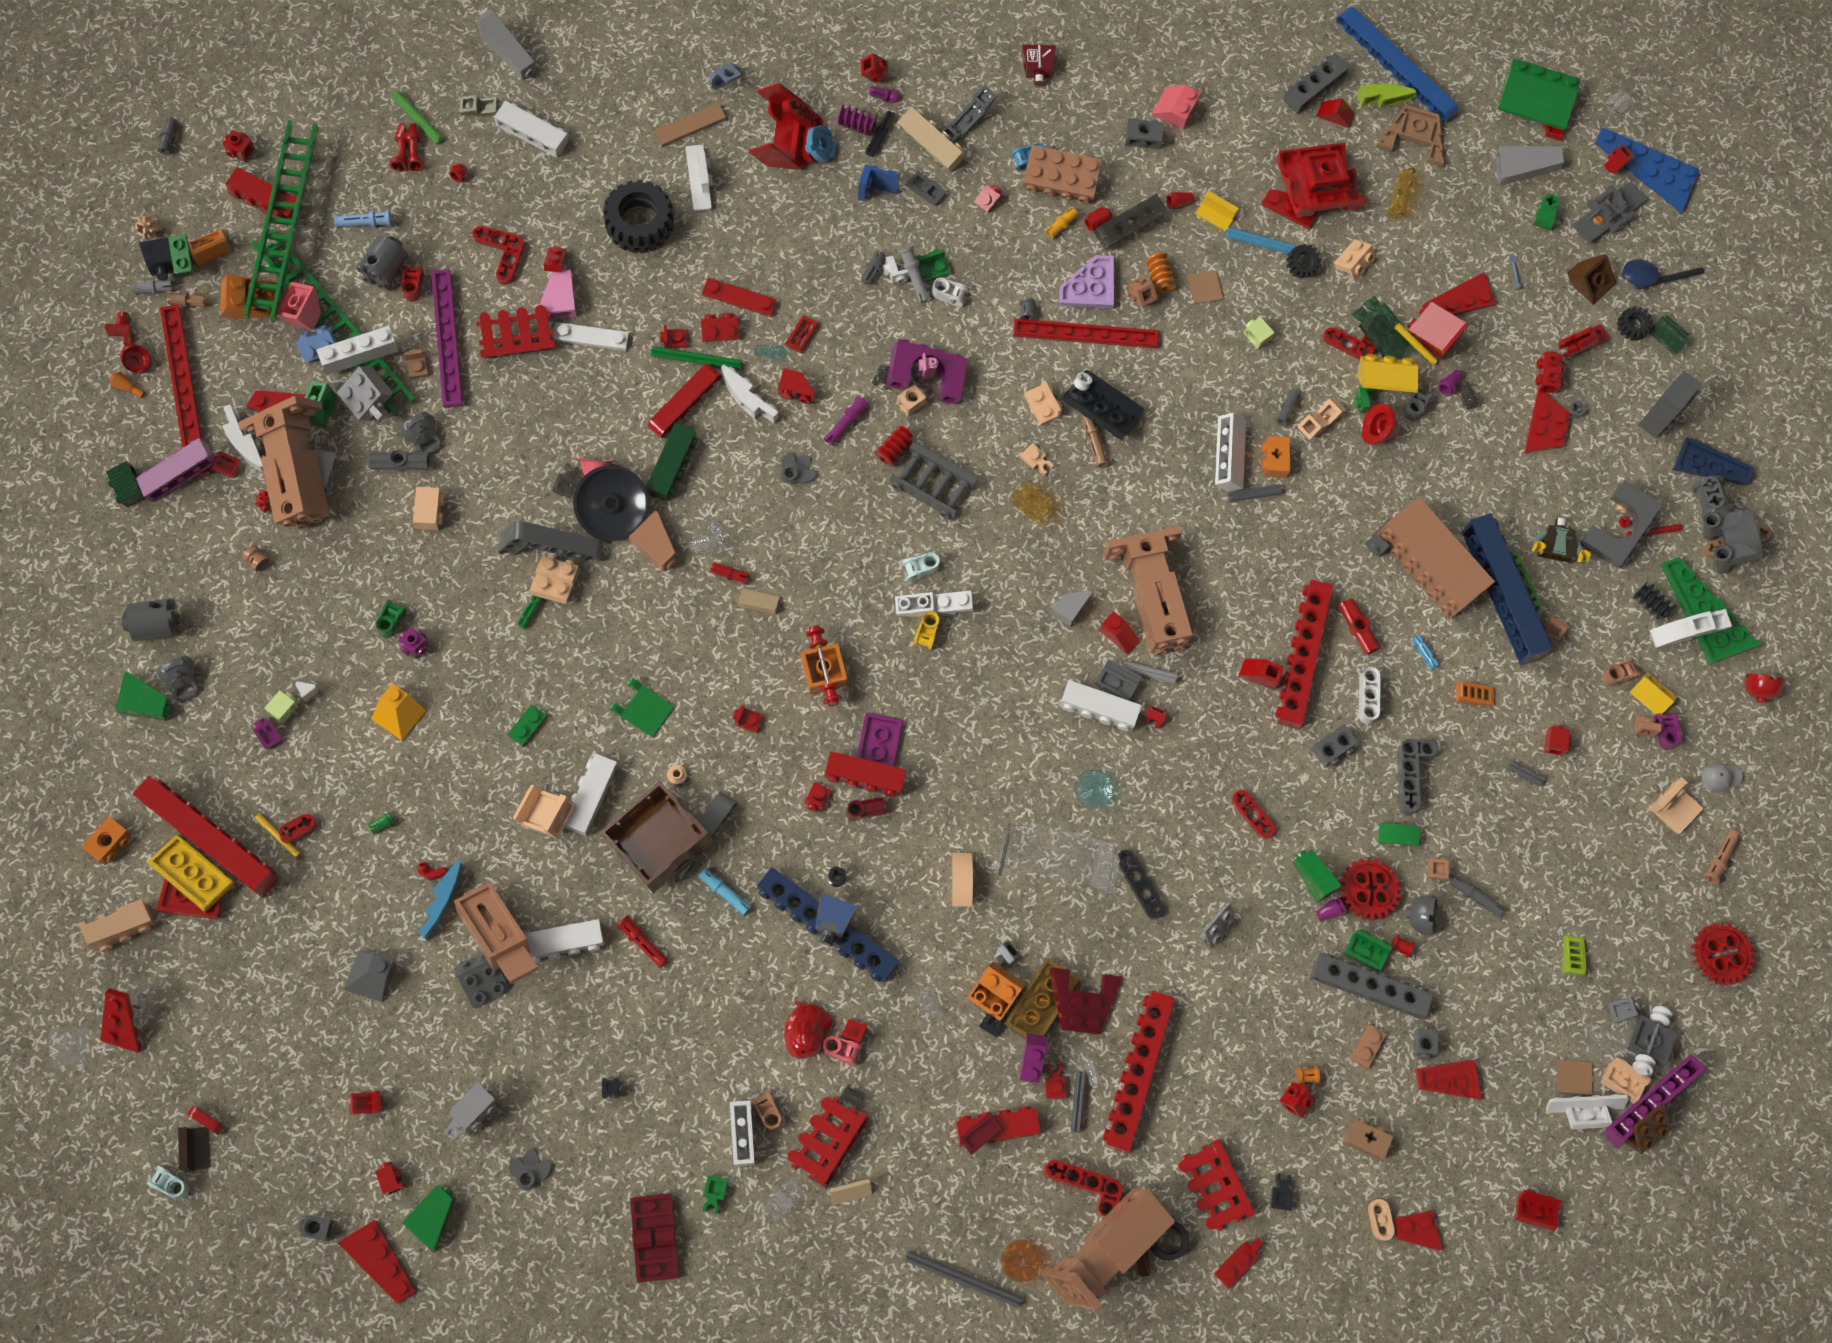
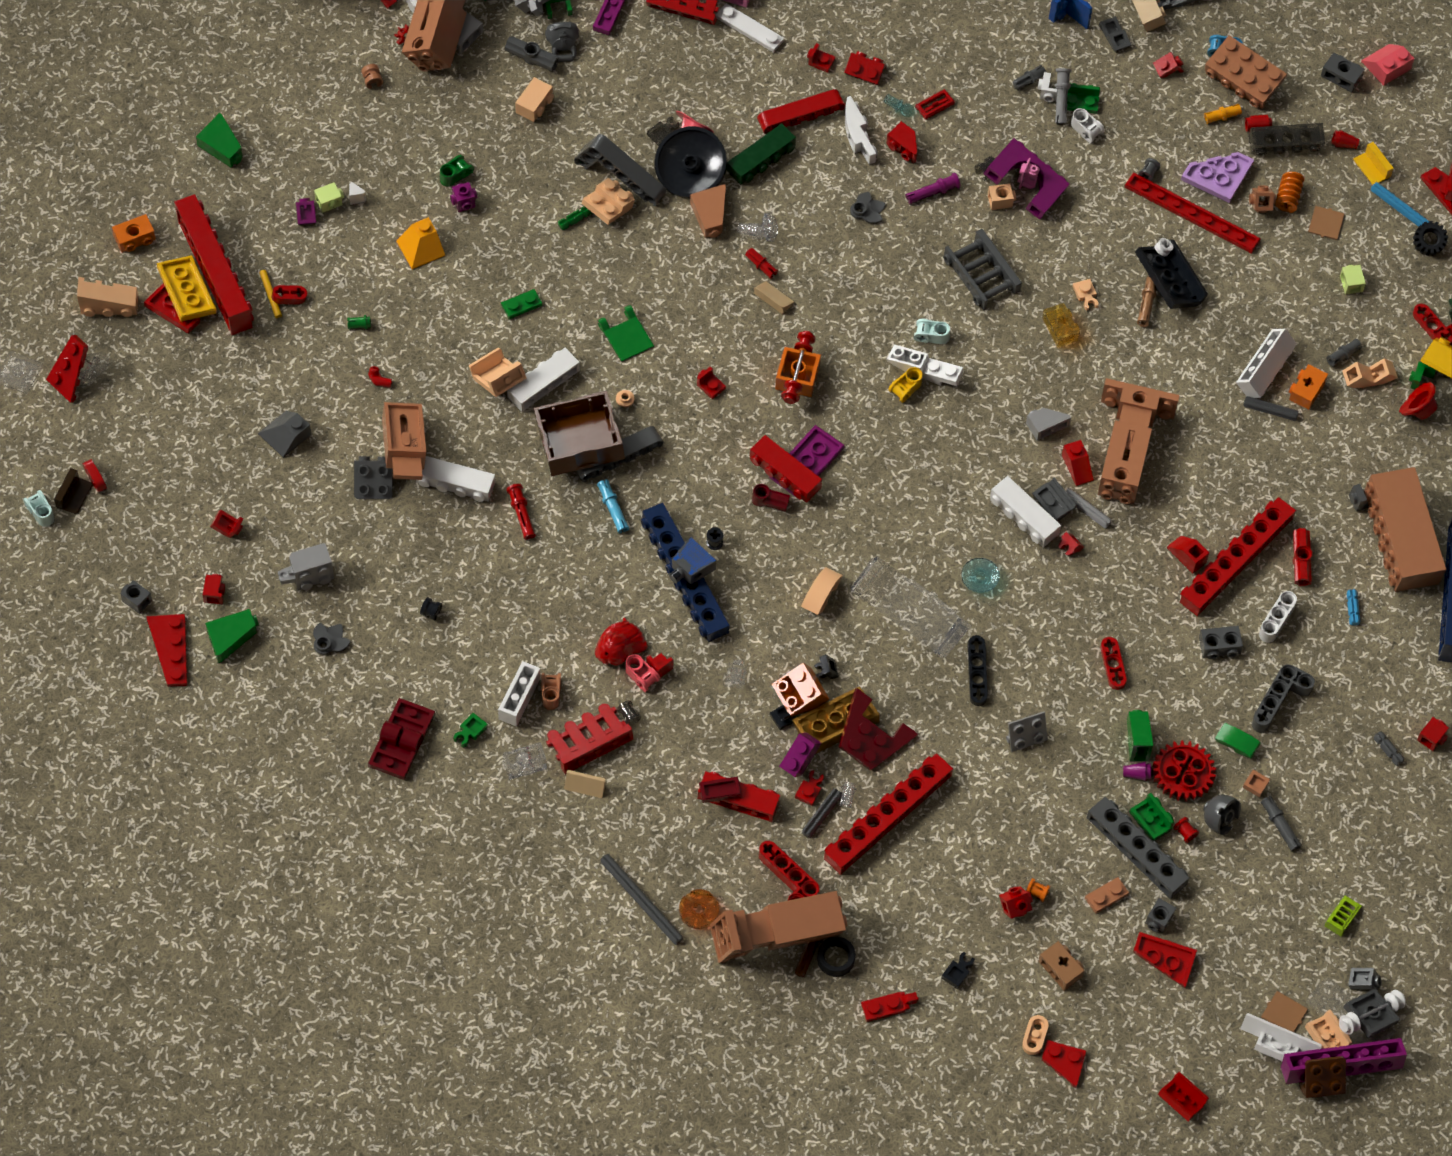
camera: 35 degrees right, 10 degrees down
(151, 619) = (262, 83): dark grey cylinder -> none
(178, 675) = (260, 135): dark grey piece -> none
(444, 892) = (371, 405): dark azure slope -> none
(697, 358) = (829, 82): green axle -> none
(739, 297) = (897, 51): red plate -> none
(817, 797) = (734, 471): red bracket -> none
(893, 445) = (963, 225): red piece -> none
(1043, 403) = (1118, 252): light nougat bracket -> none
(1220, 1195) = (904, 927): red fence -> none
(1460, 698) = (1369, 663): orange slope -> none

